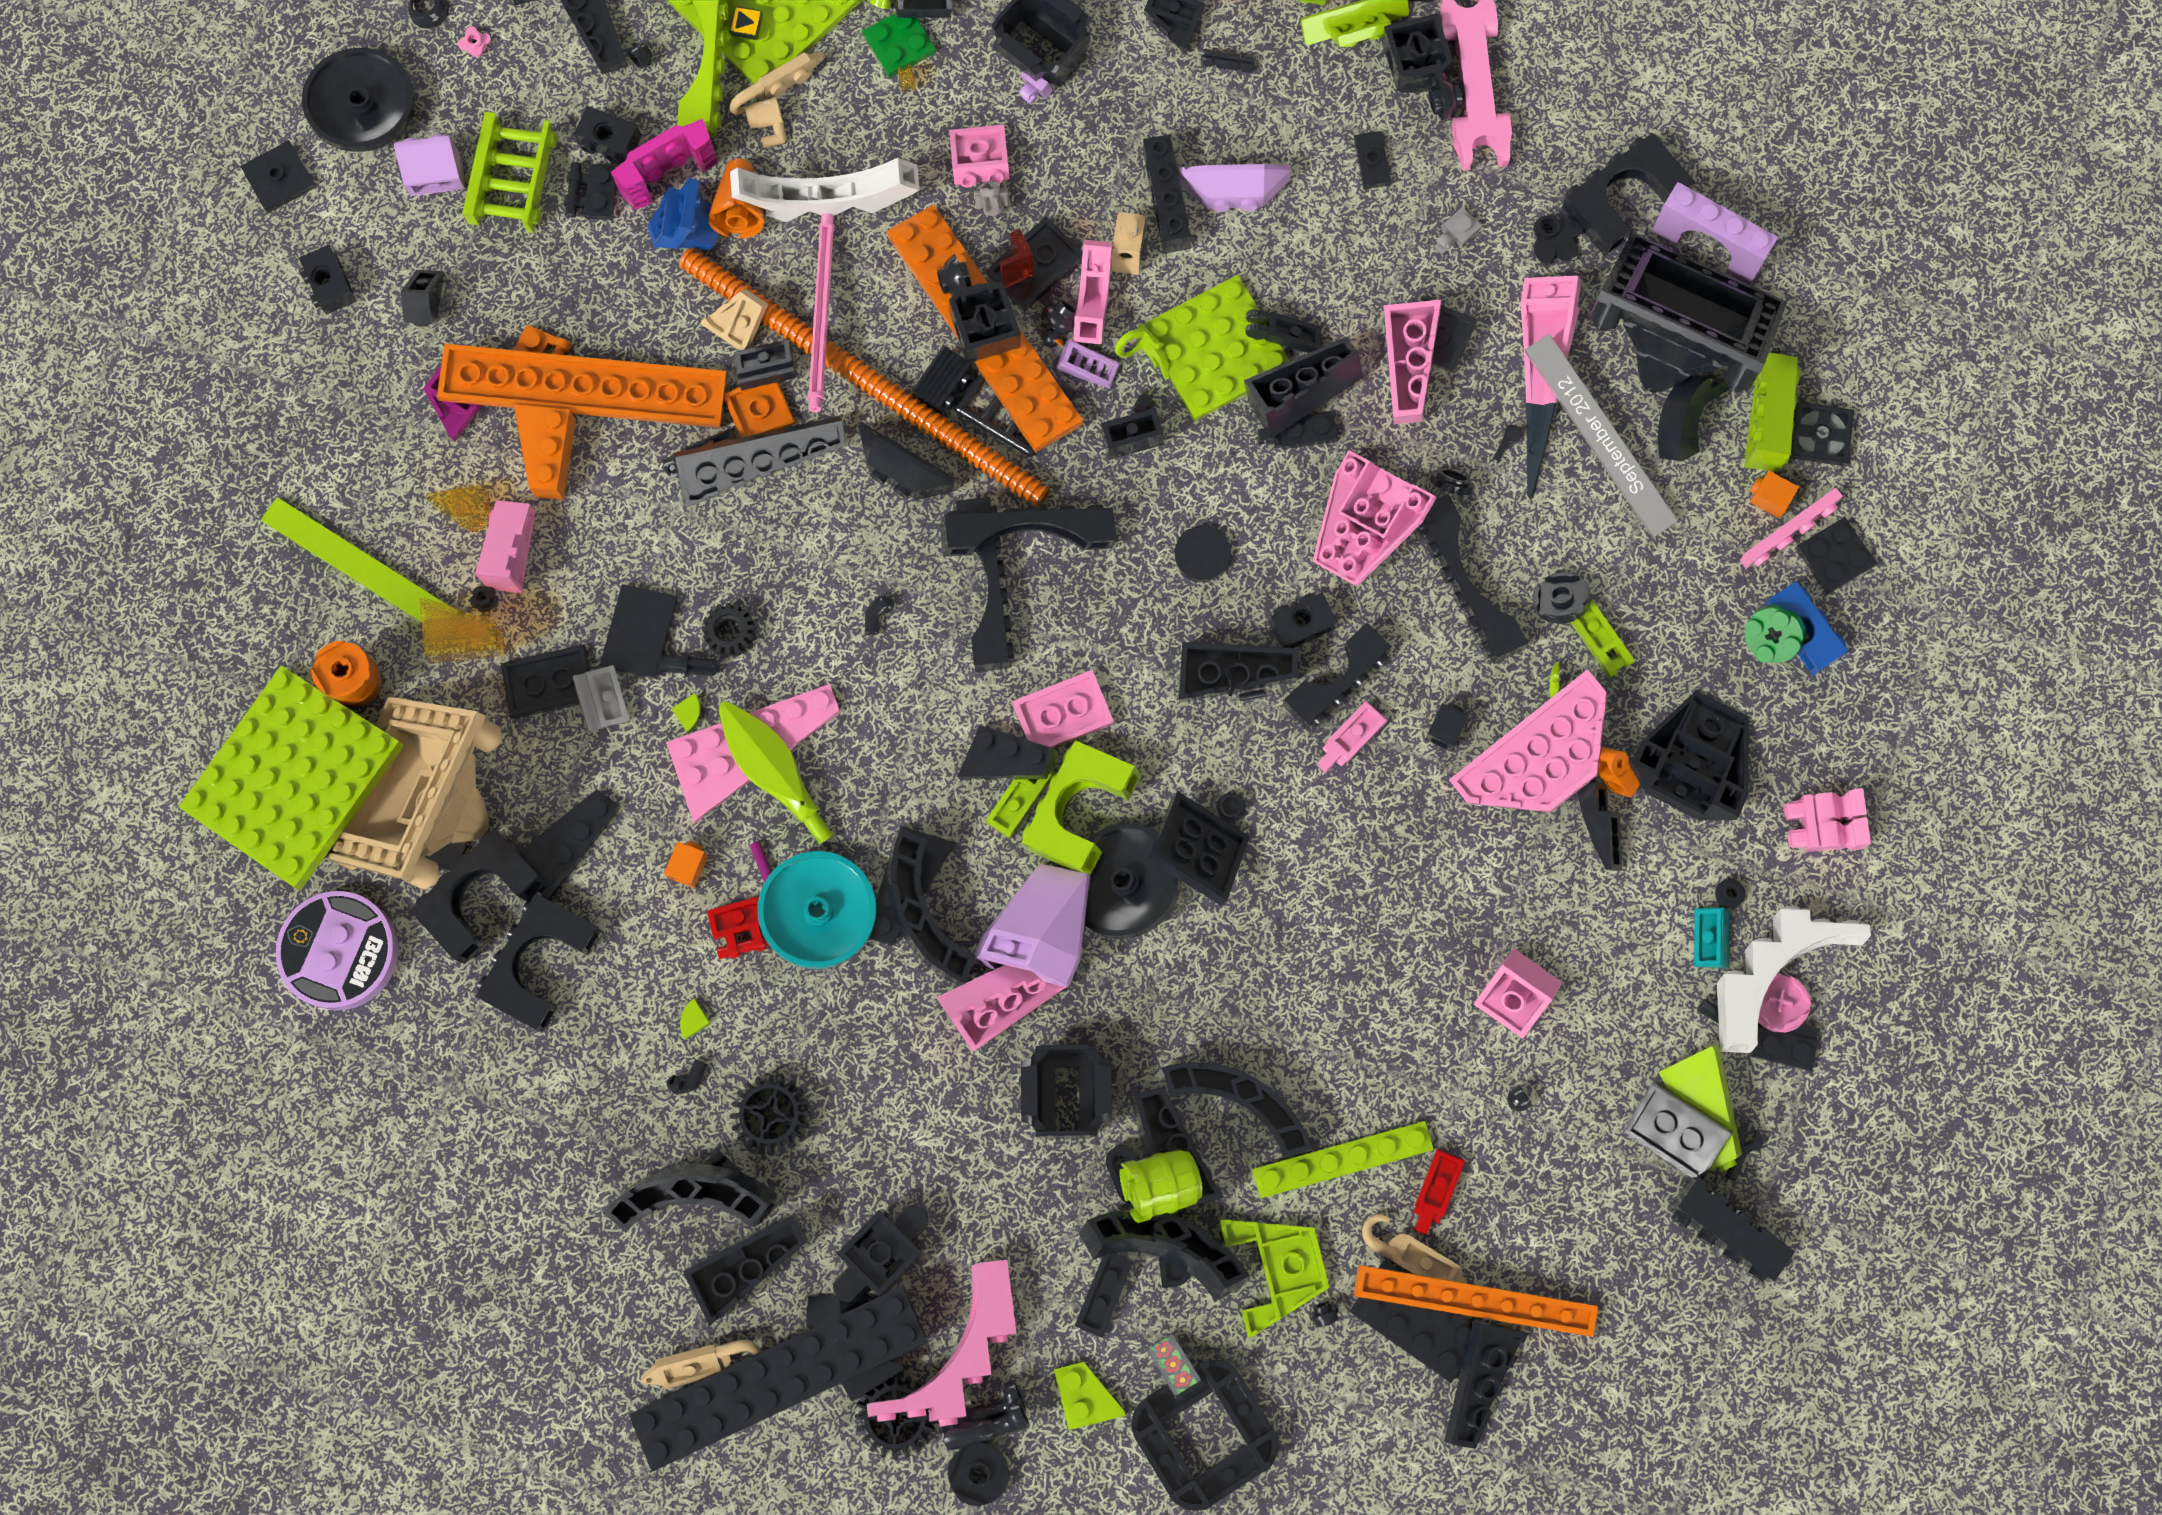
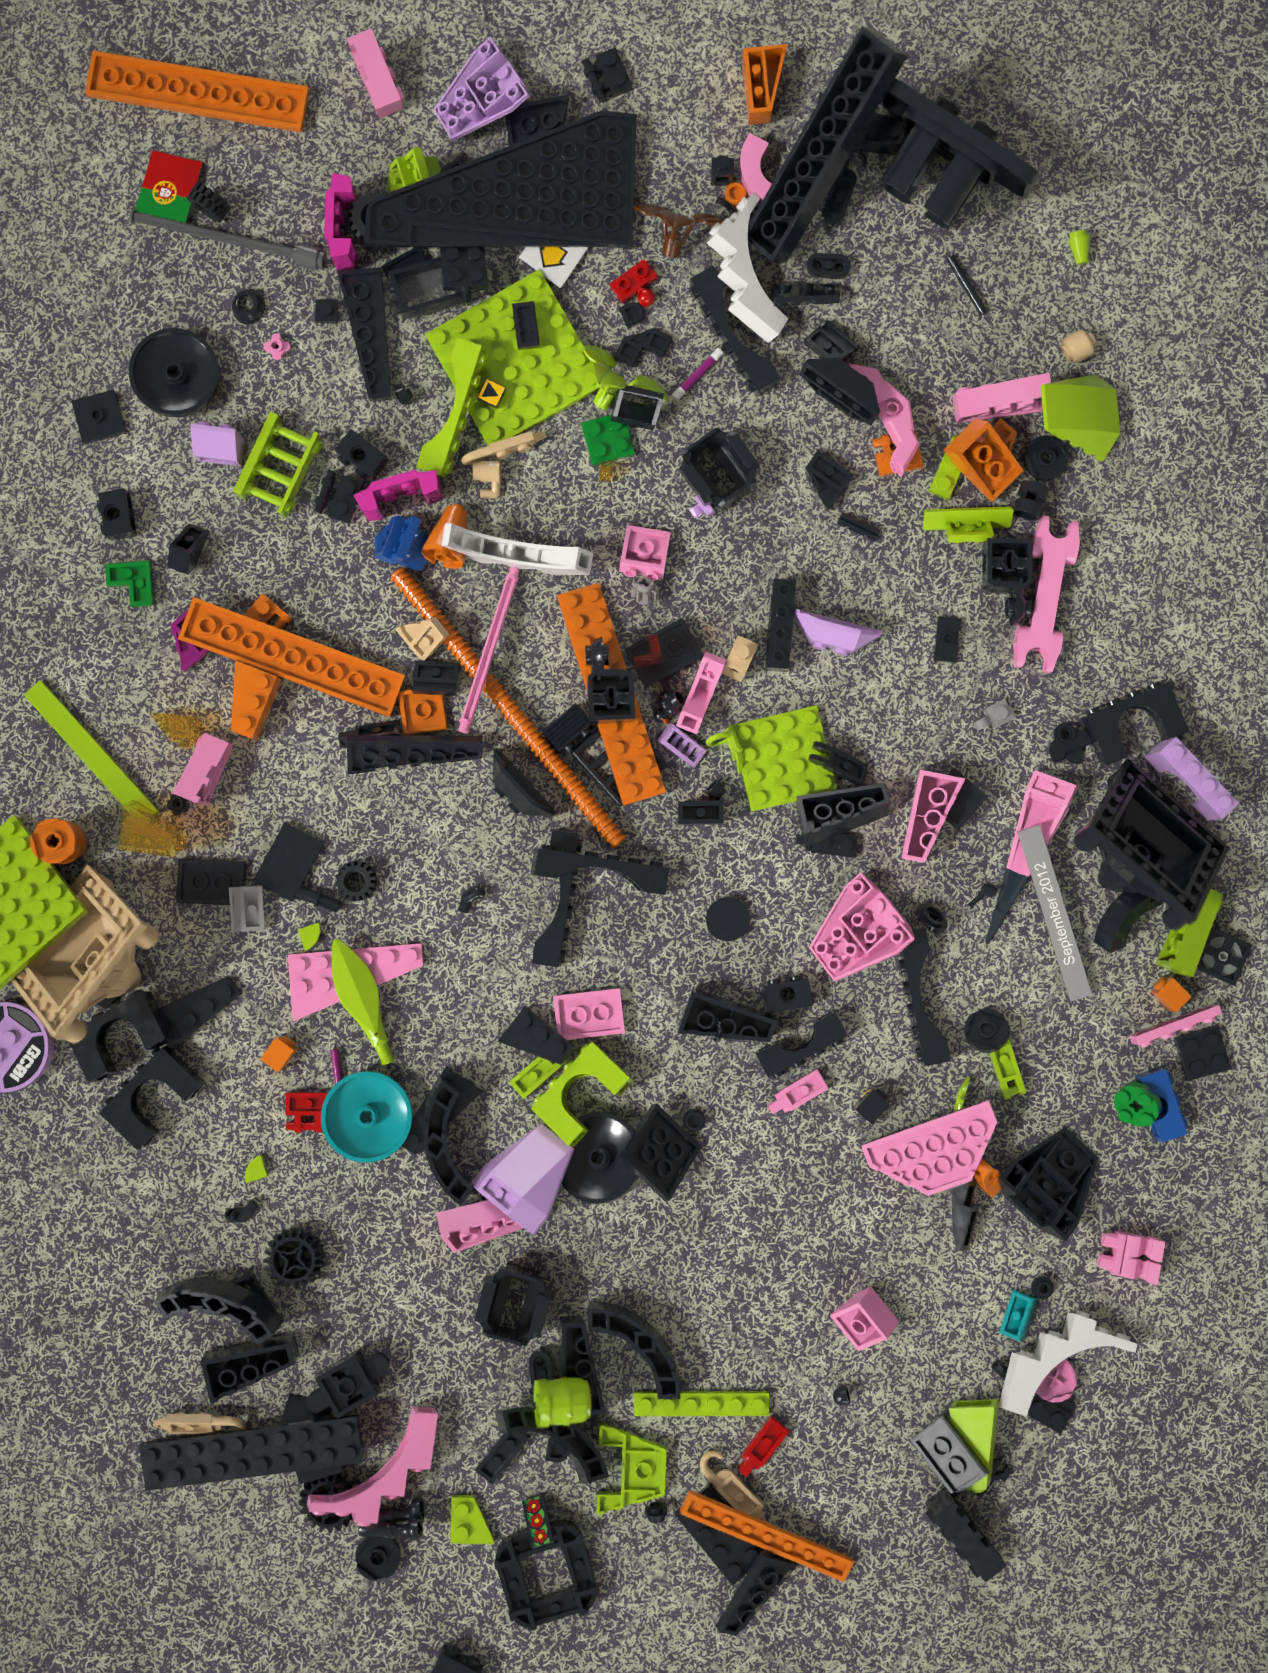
camera: 10 degrees right, 10 degrees up
(366, 345) = (136, 576): none -> green plate

